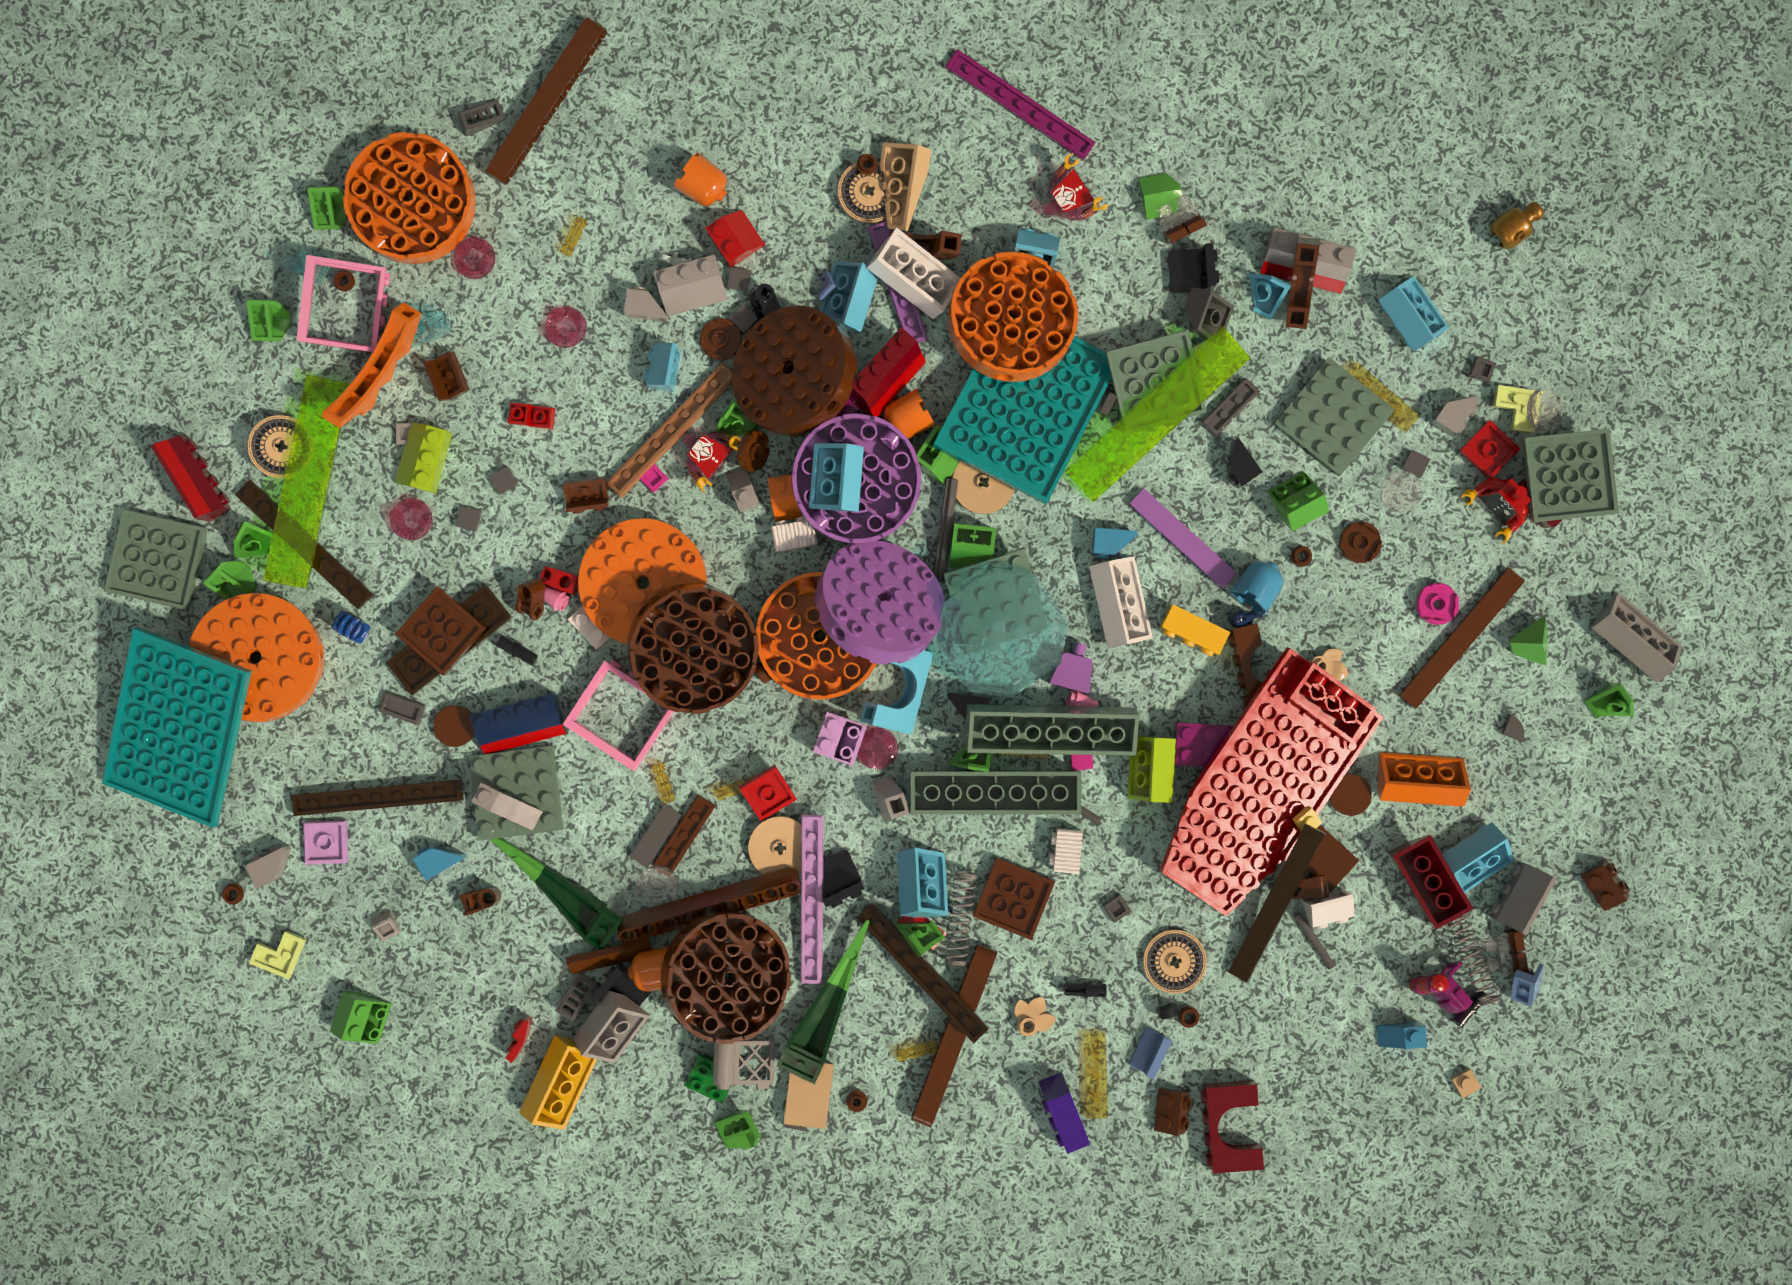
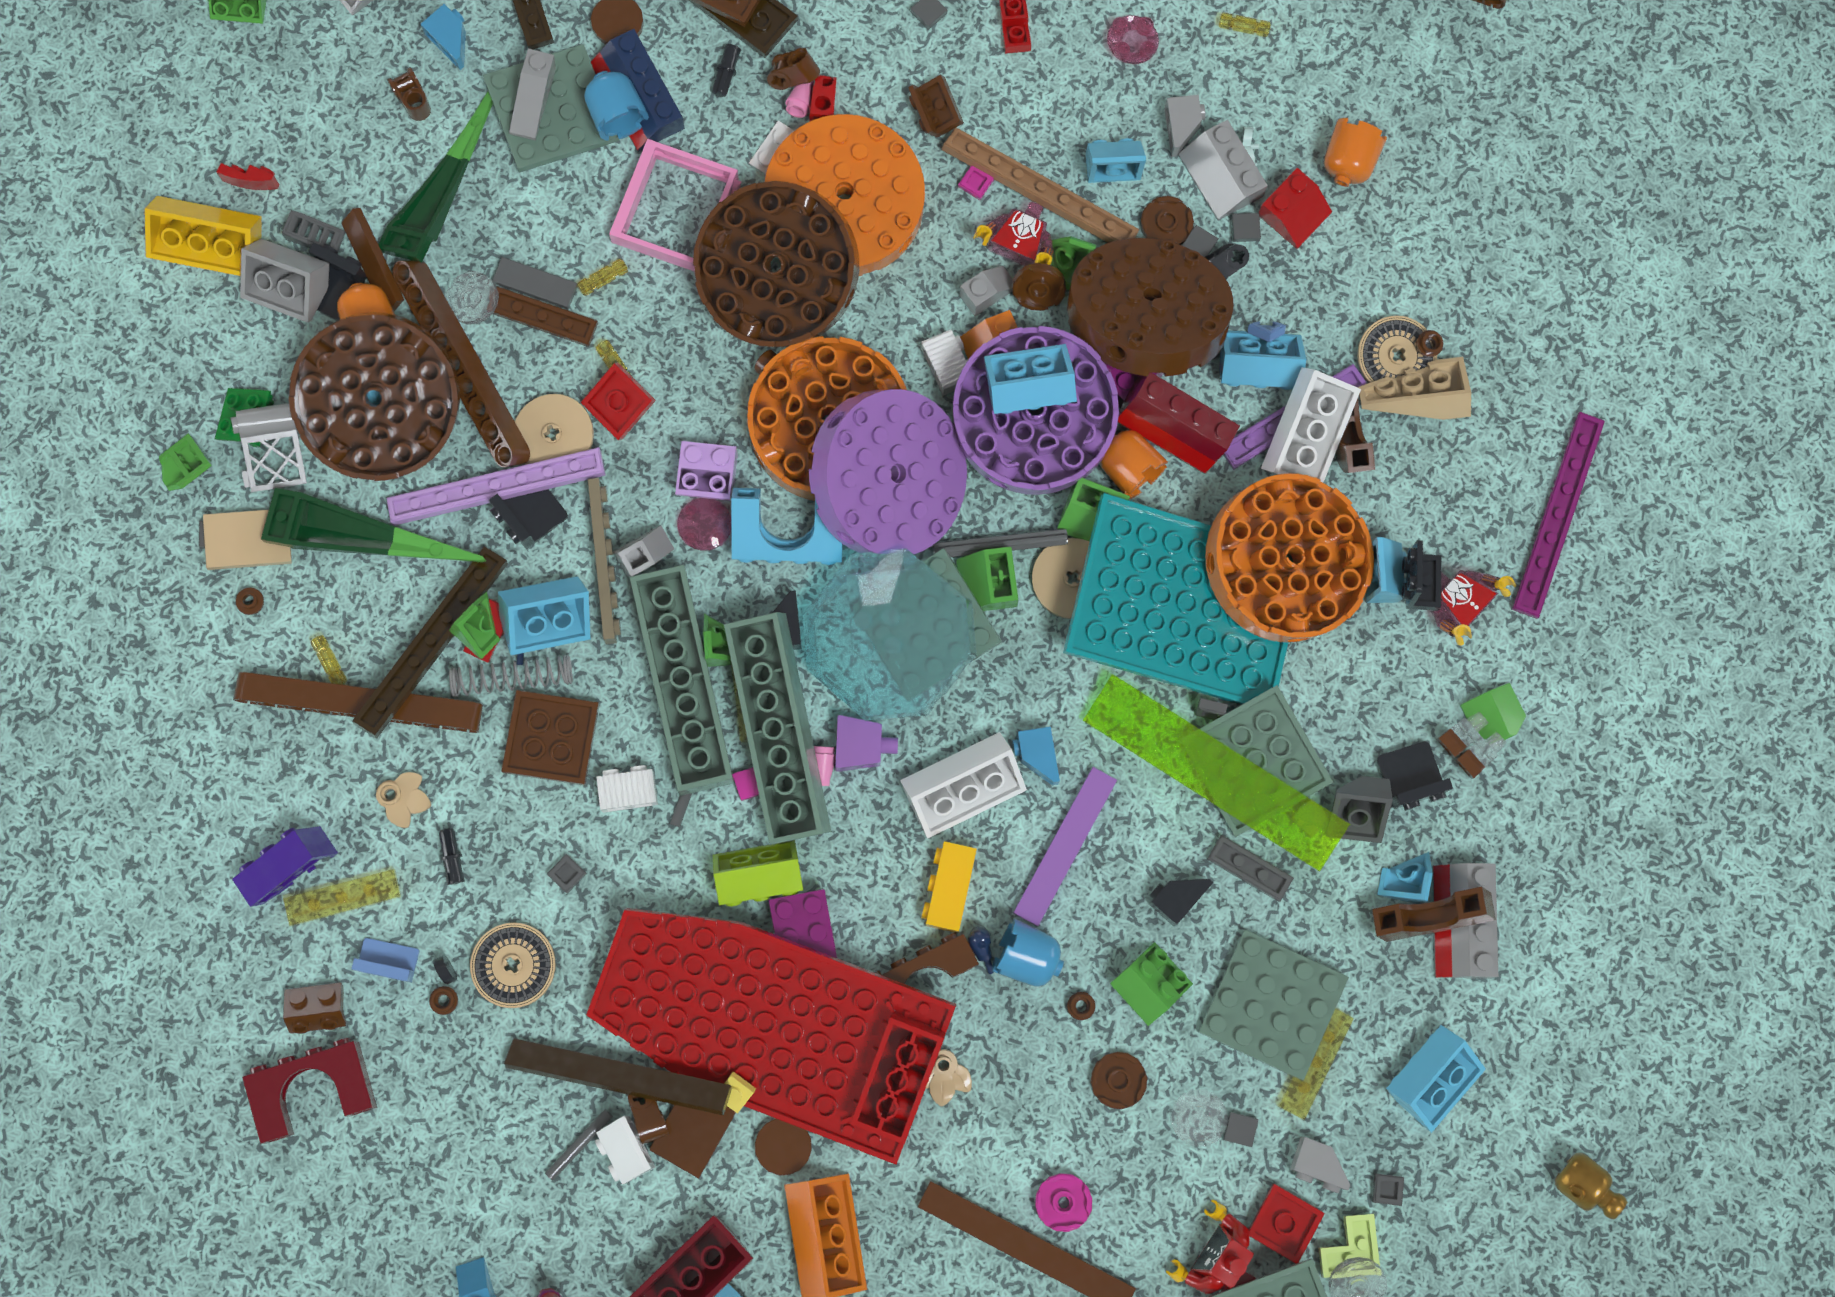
camera: 70 degrees right, 10 degrees down
(530, 744) = (614, 105): none -> dark azure cylinder
(898, 831) = (605, 573): none -> dark tan plate
(1052, 222) = (1422, 579): none -> black bracket

